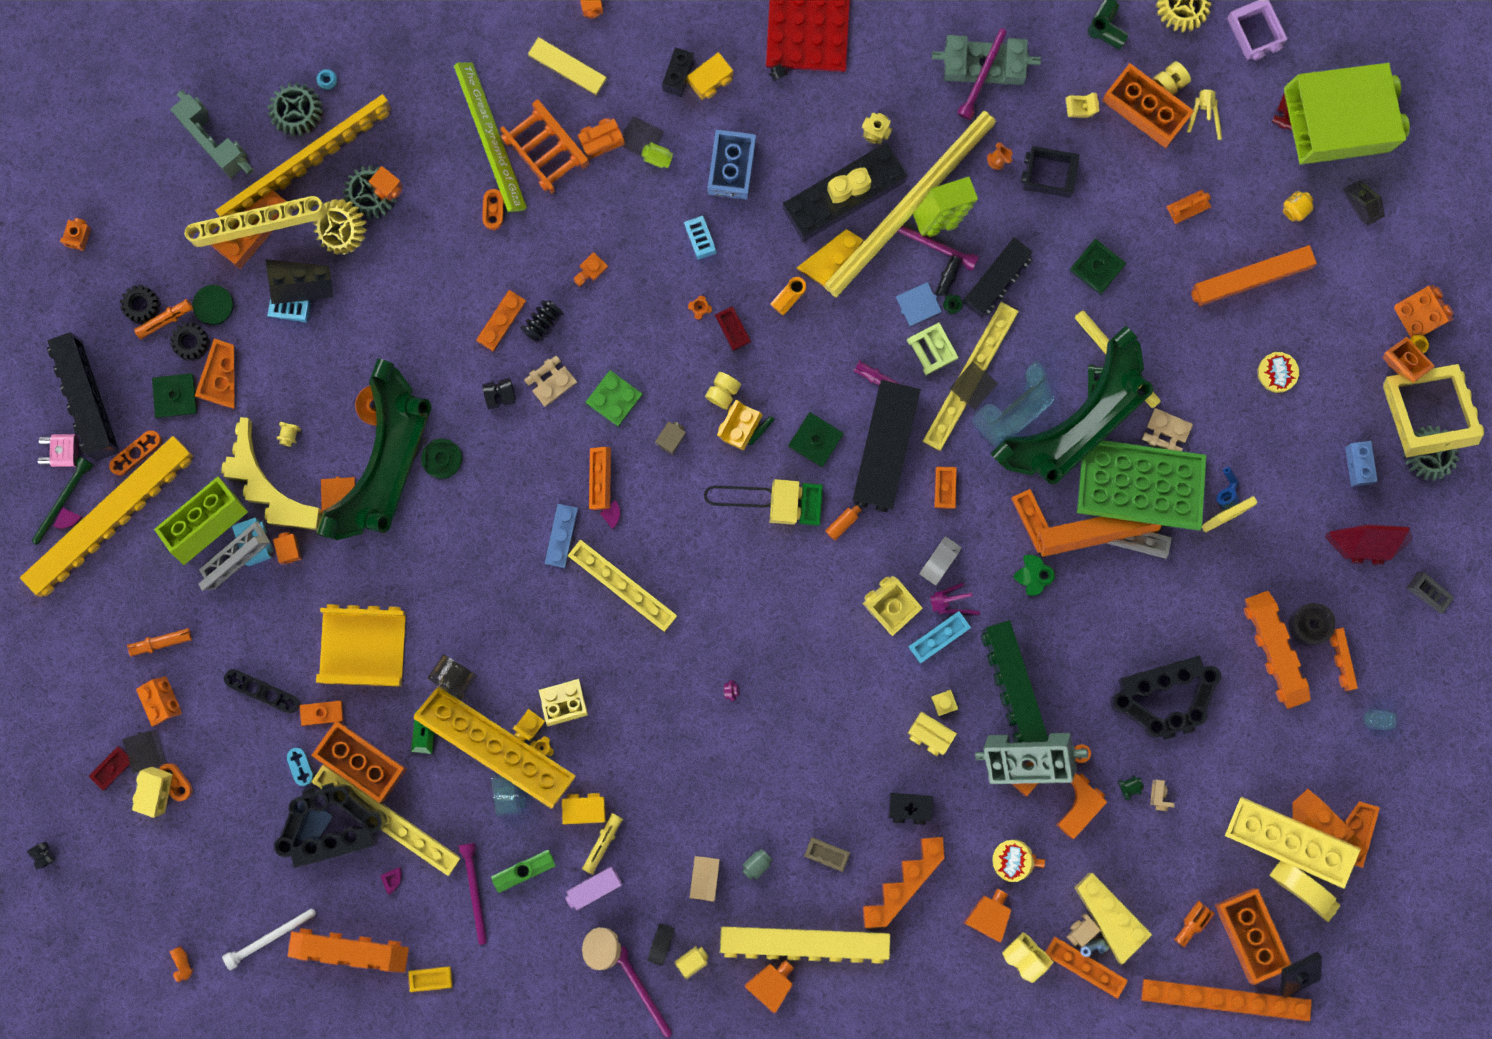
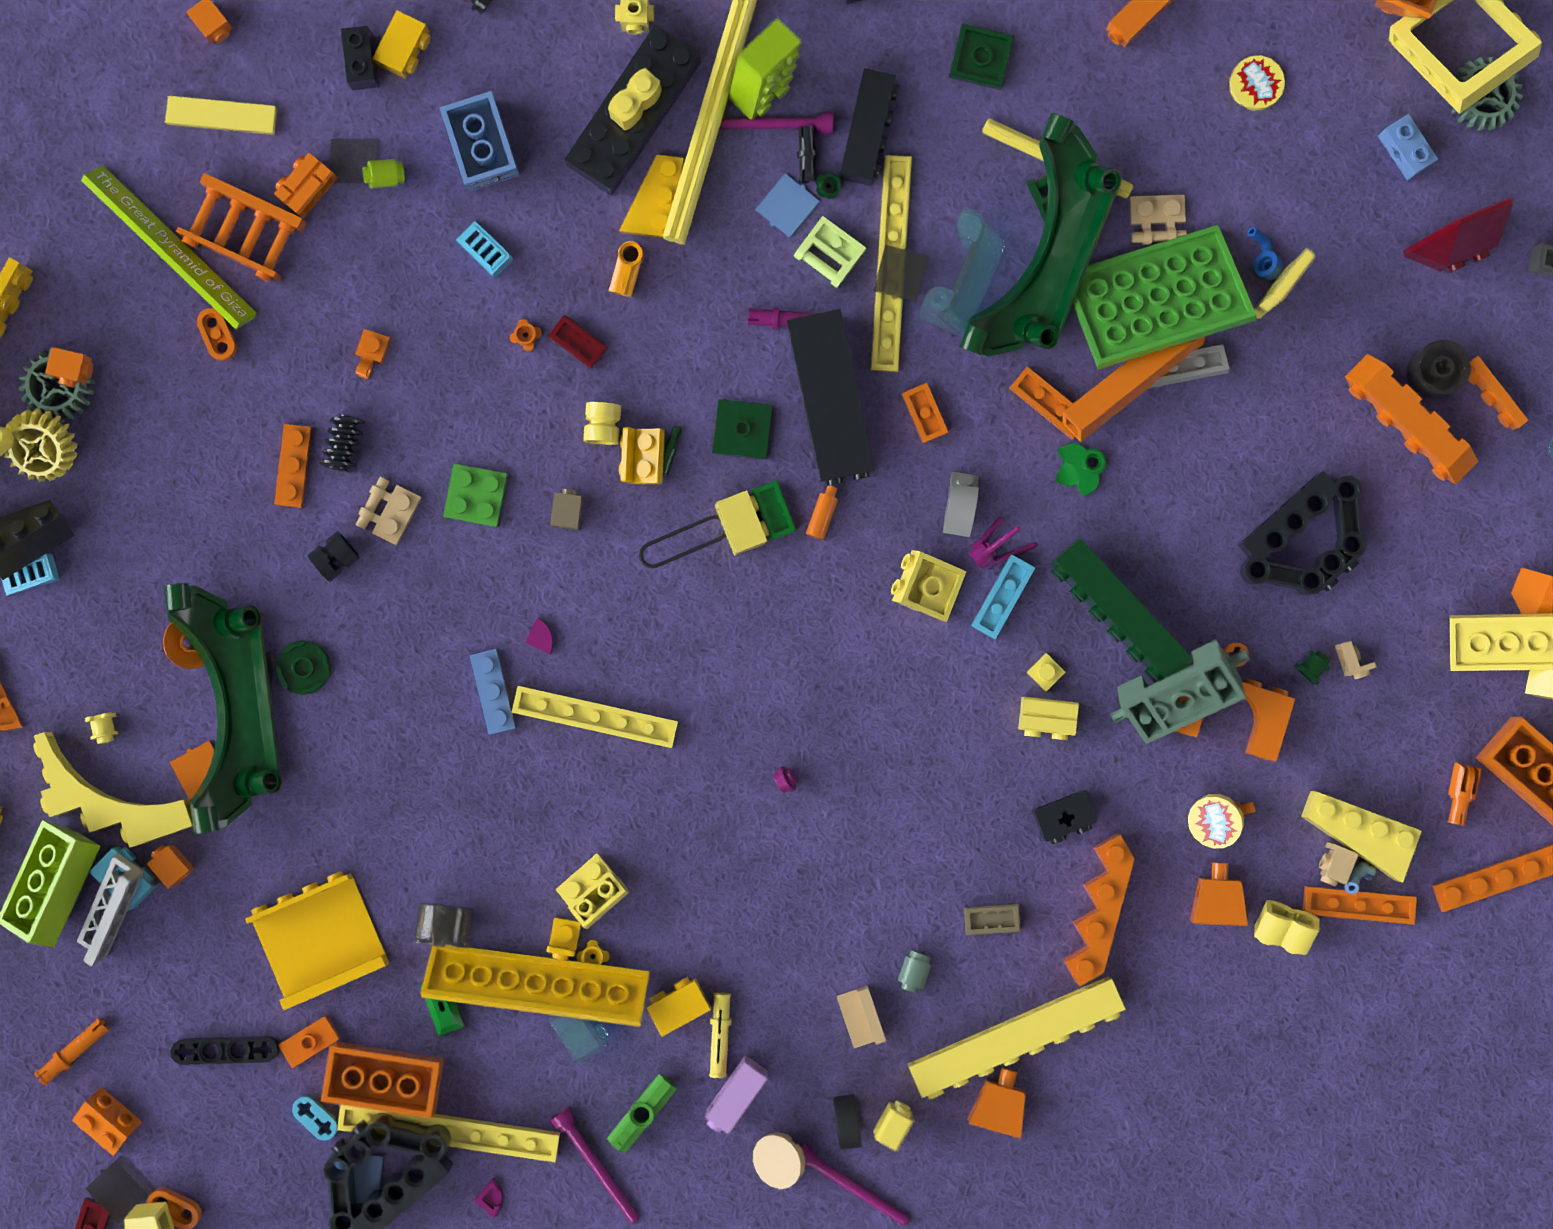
camera: 20 degrees left, 5 degrees up
(599, 478) = (505, 600): orange plate -> none

